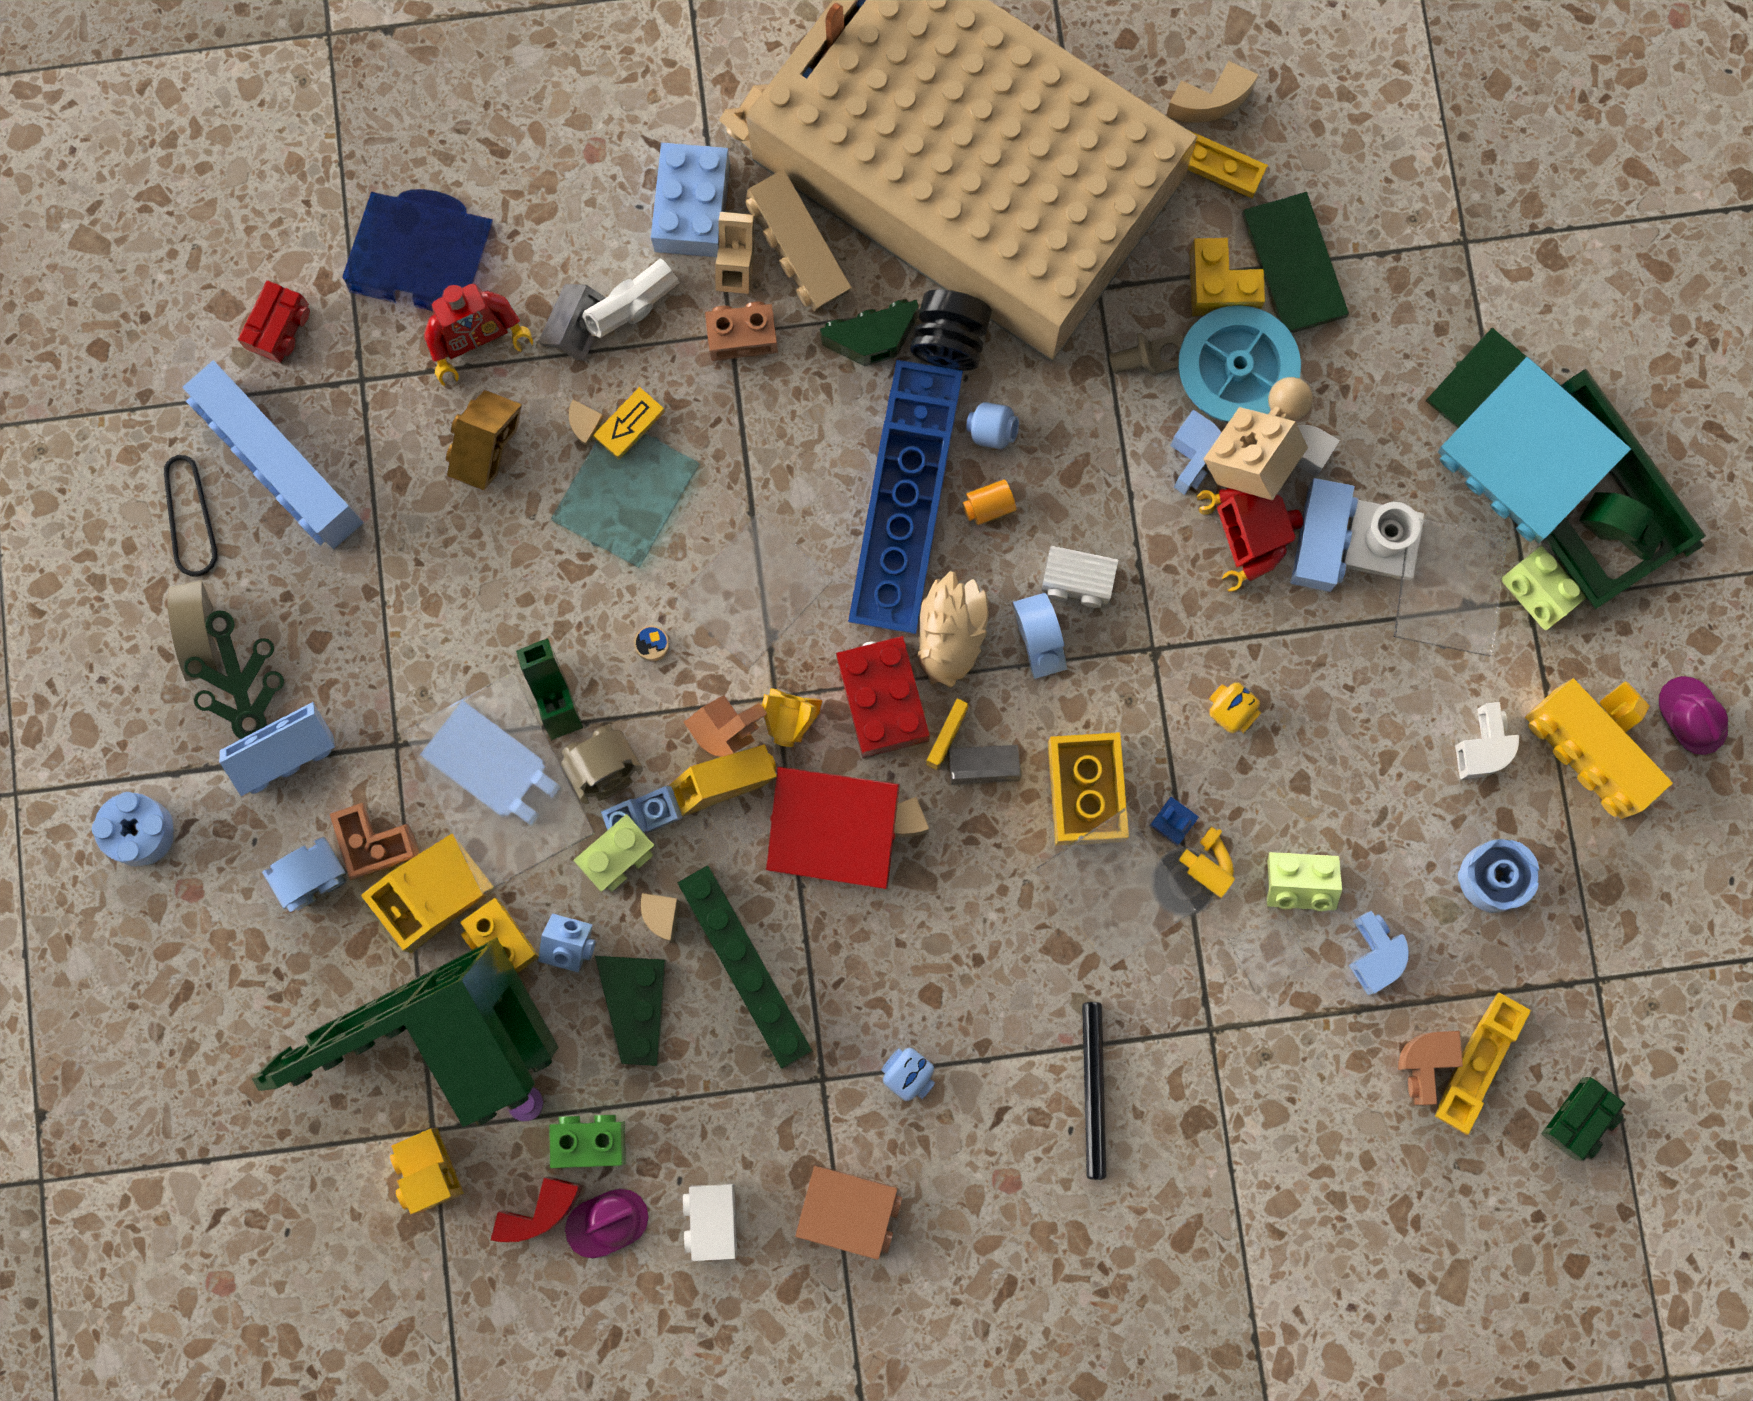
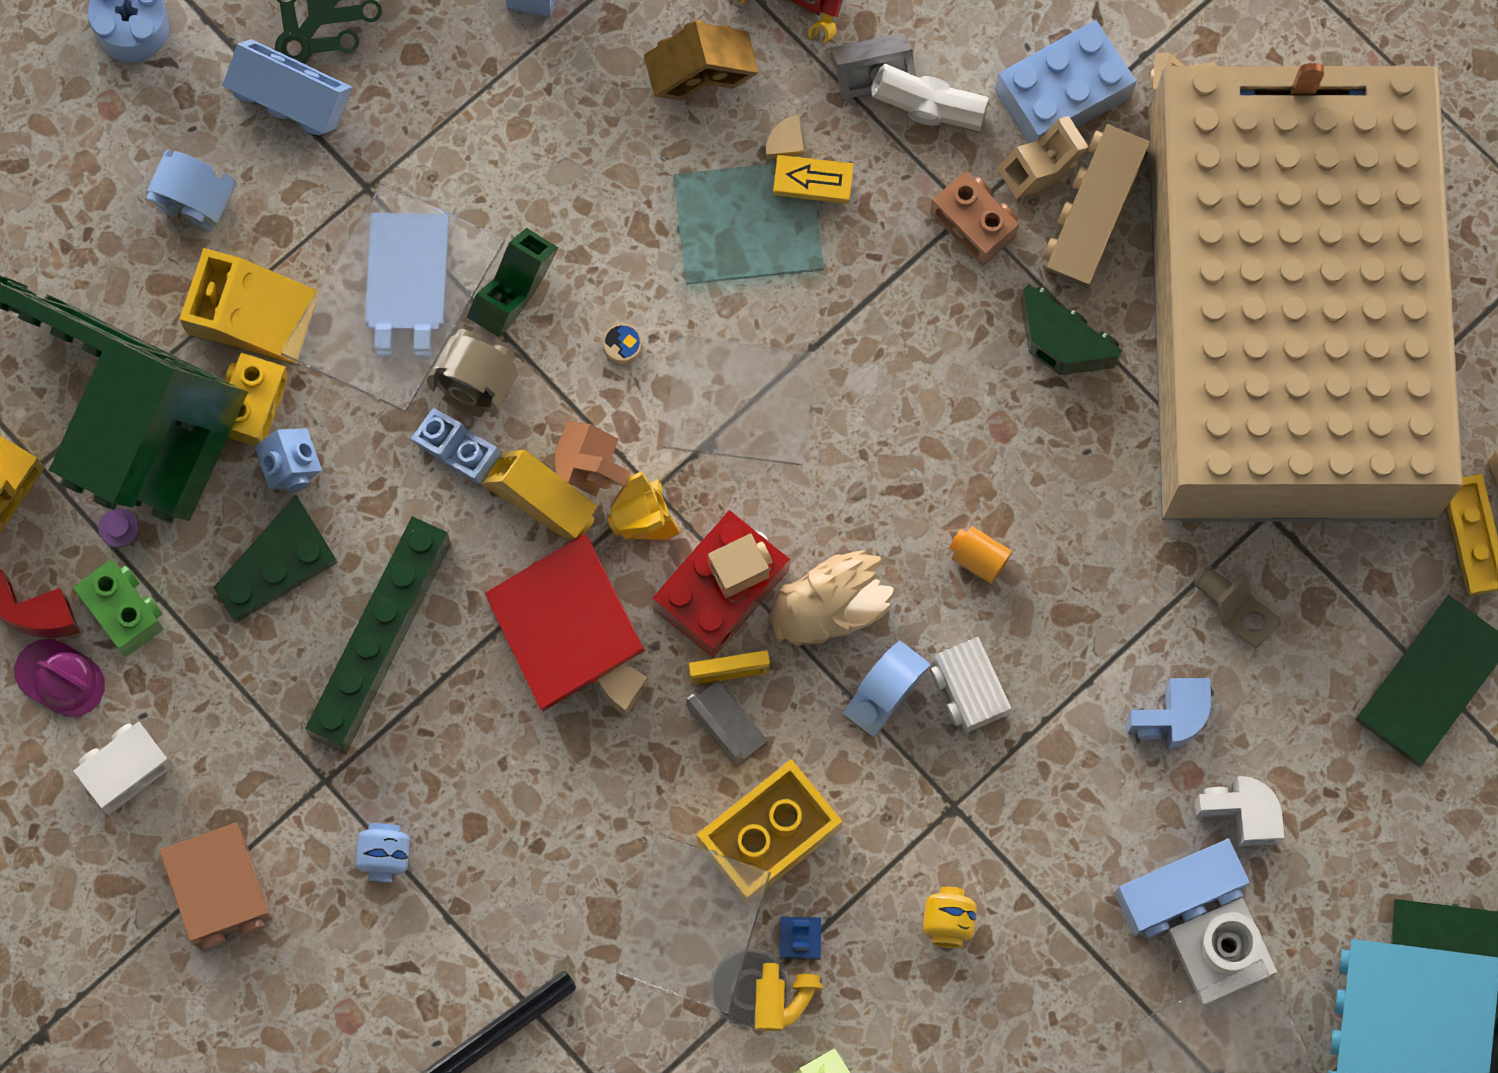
camera: 50 degrees right, 5 degrees down
(368, 852) = (250, 230): nougat brick -> none
(614, 854) = (400, 445): yellowish green bracket -> none
(660, 915) = (373, 526): tan brick -> none
(887, 673) = (739, 565): none -> tan brick
(905, 496) = (930, 473): blue slope -> none
(951, 329) = (1121, 400): black wheel -> none
(993, 425) = (1056, 506): light blue head -> none
(1216, 285) = (1350, 624): yellow brick -> none
(1230, 339) = (1309, 668): medium azure piece -> none
(1254, 529) = (1138, 818): red torso -> none
(1260, 448) = (1213, 765): tan brick -> none

